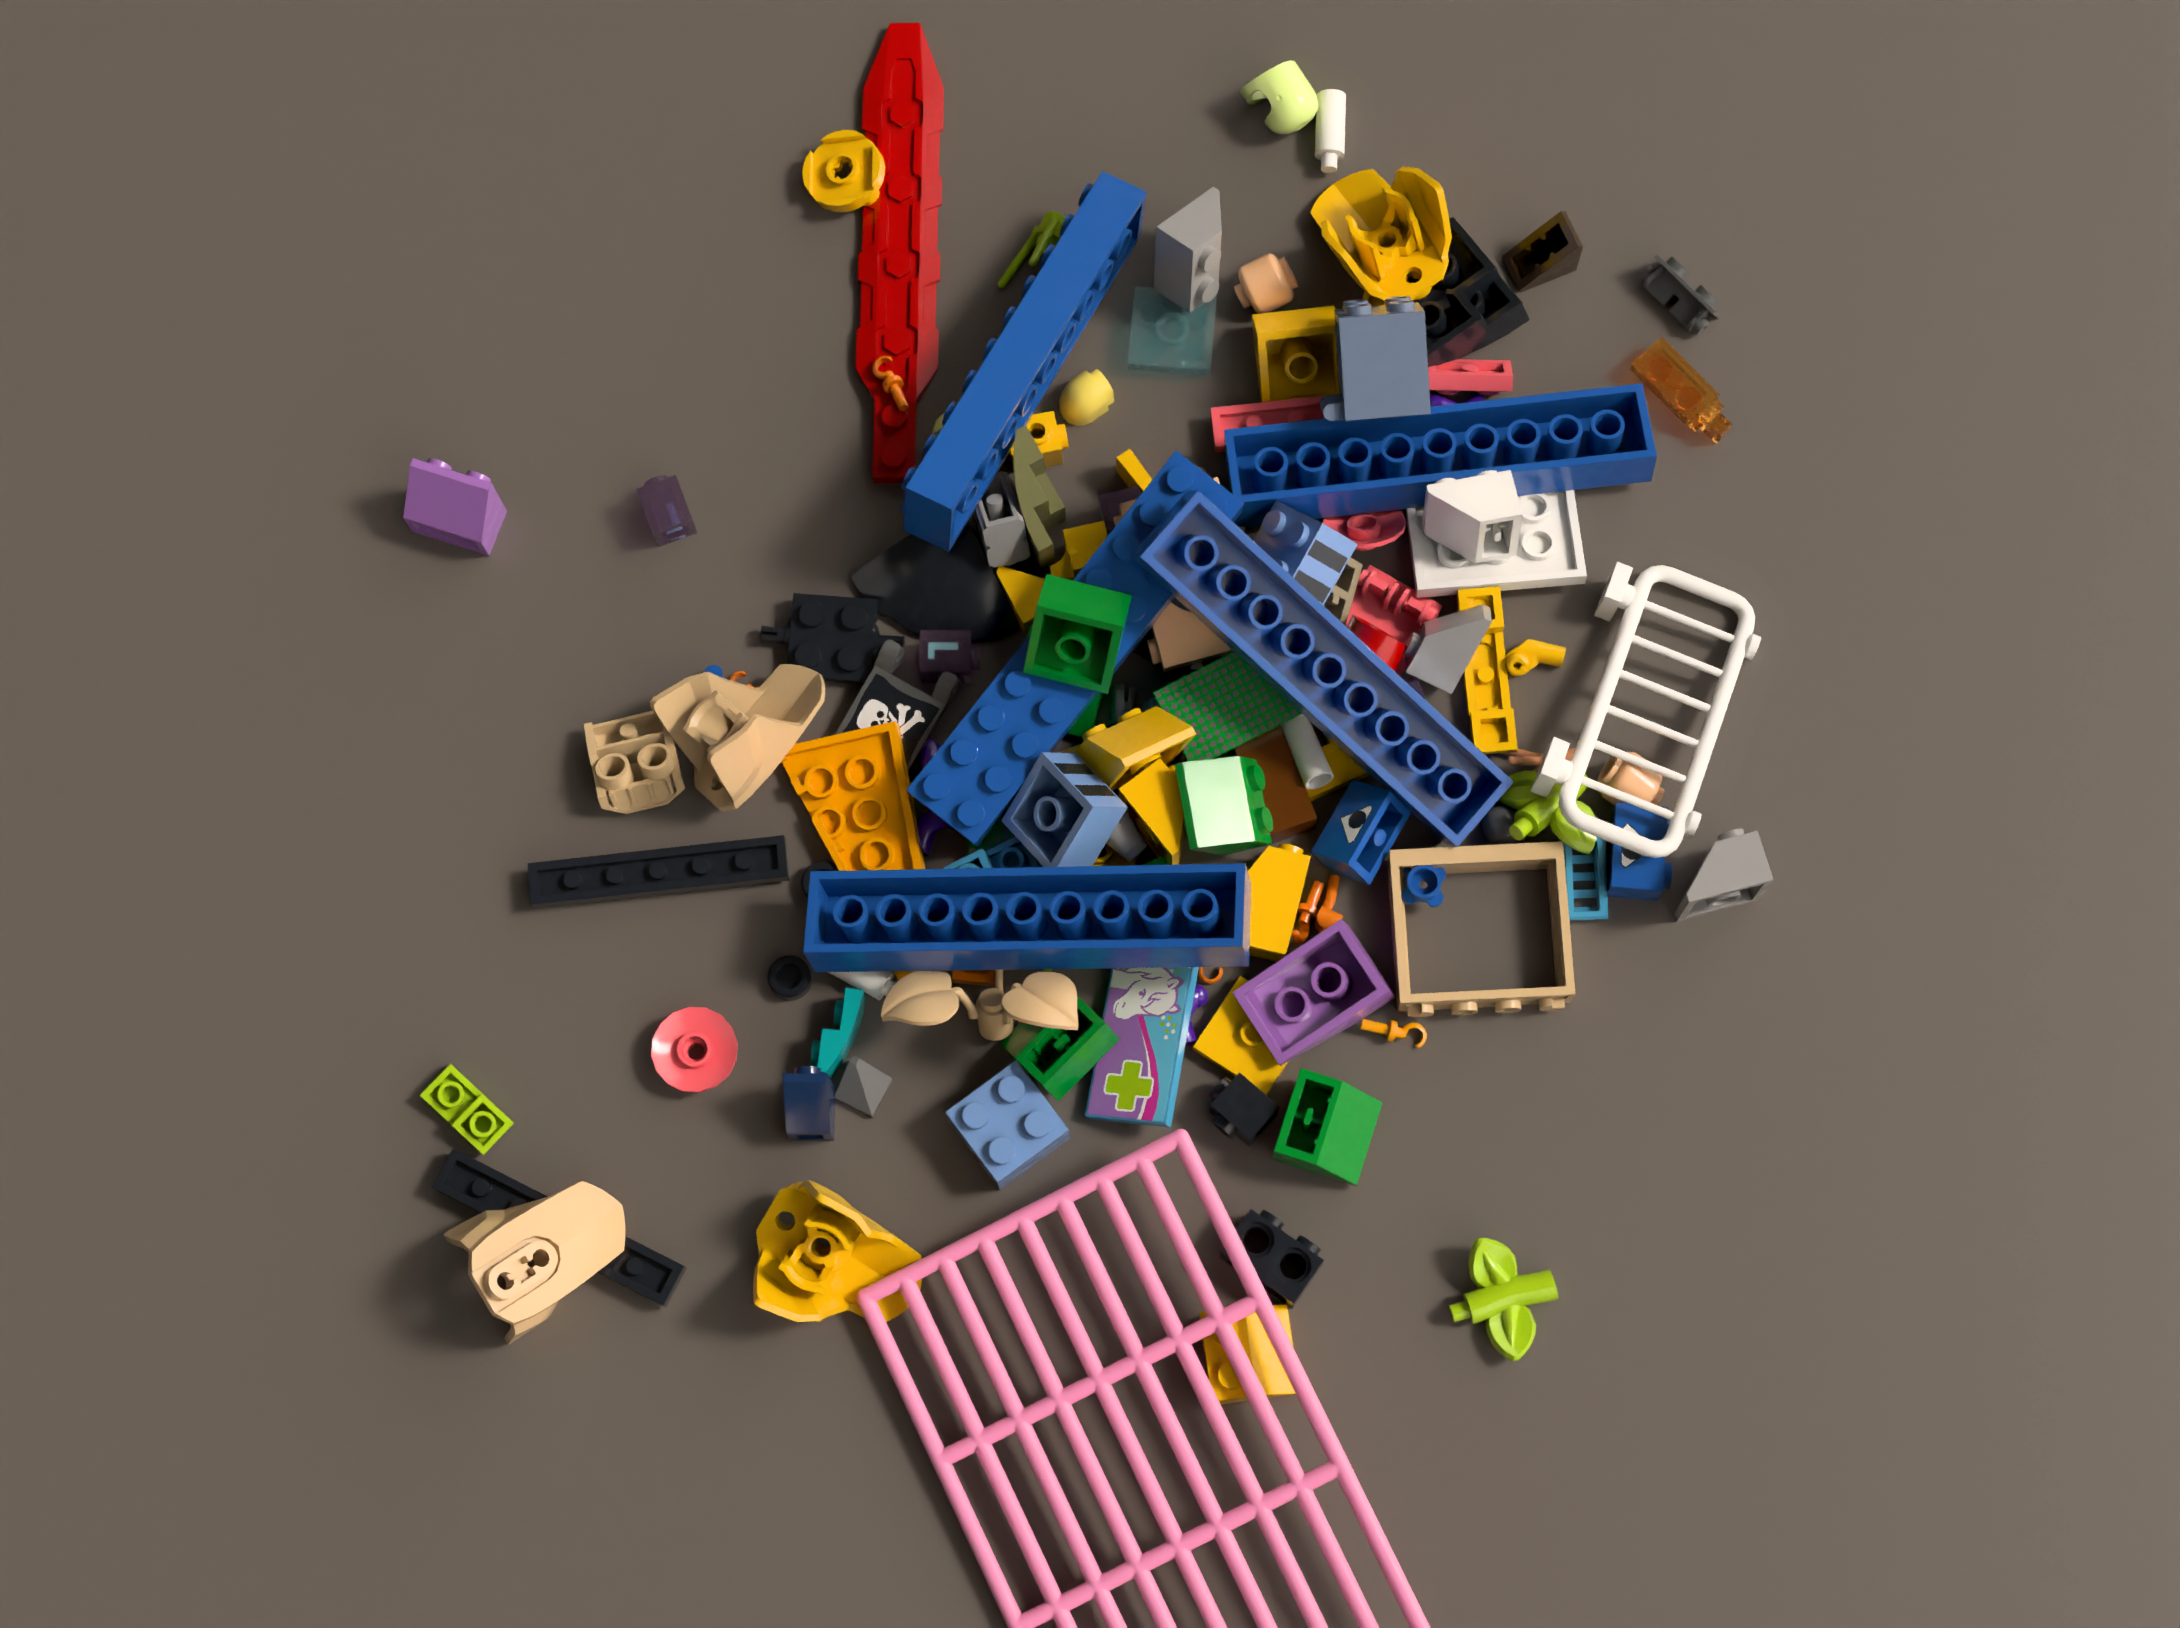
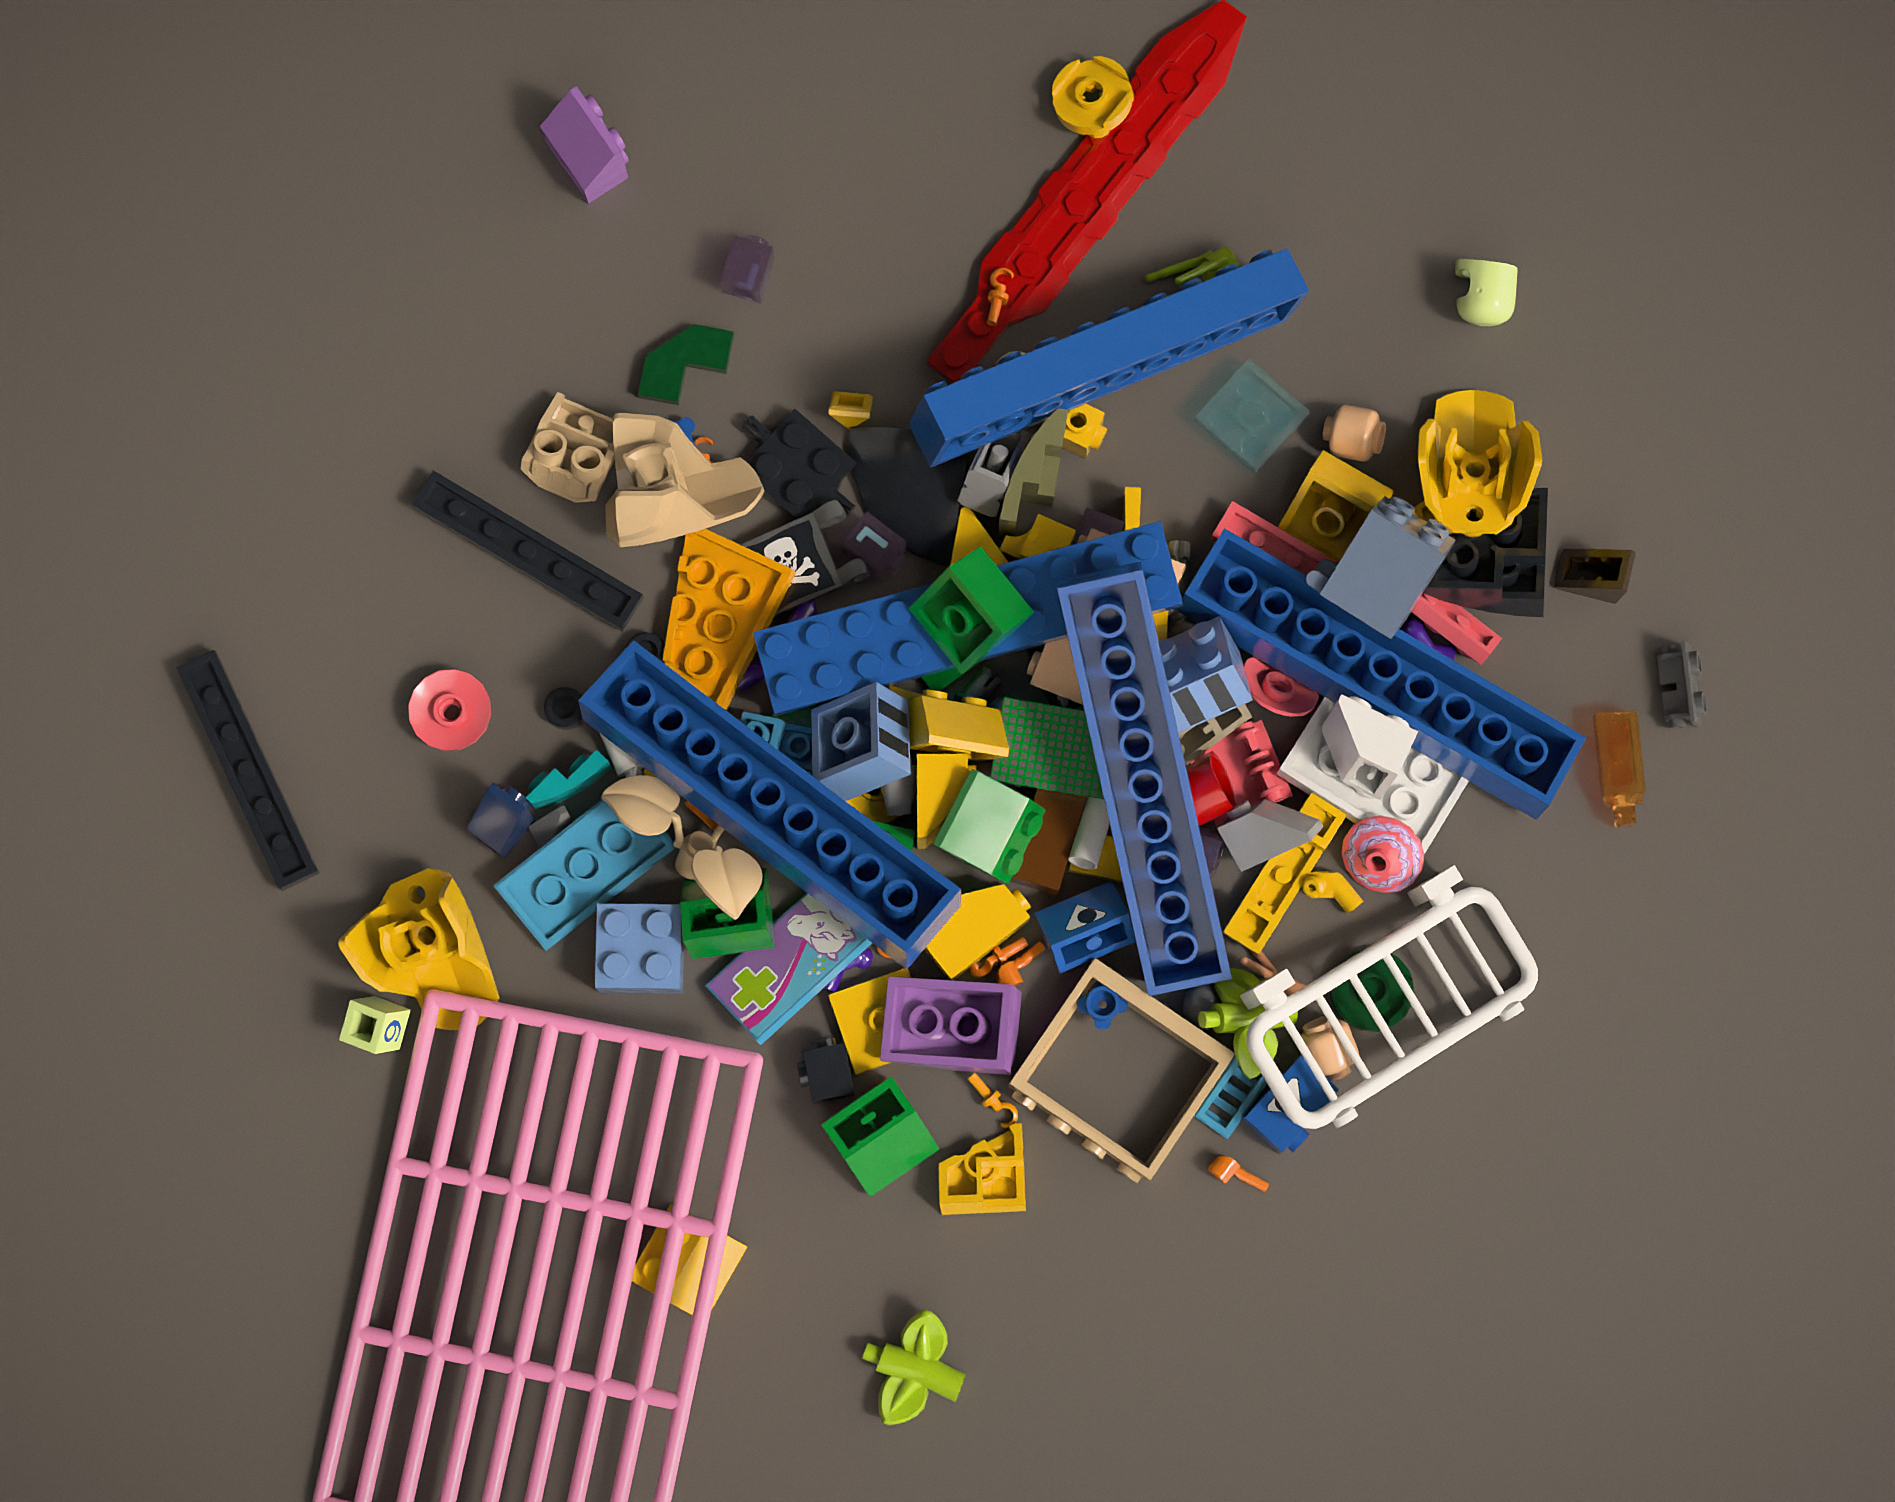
camera: 30 degrees right, 5 degrees up
(466, 1109) = (248, 626): lime slope -> none
(563, 1233) = (242, 779): piece -> none
(669, 608) = (694, 348): none -> dark green tile
(833, 1355) = (374, 1024): none -> yellowish green brick
(839, 561) = (850, 408): none -> yellow slope
(907, 1100) = (577, 871): none -> dark azure tile
(1085, 398) = (1141, 419): light yellow piece -> none
(1190, 252) = (1308, 365): light grey slope -> none
(1280, 1247) = (751, 1206): black brick -> none
(1330, 128) = (1506, 343): white cylinder -> none
(1438, 1097) = (986, 1177): none -> yellow slope
(1548, 580) = (1391, 841): none -> dish
(1624, 942) = (1225, 1167): none -> orange hand
(1641, 703) = (1382, 990): none -> dark green tile
(1728, 876) = (1343, 1178): light grey slope -> none

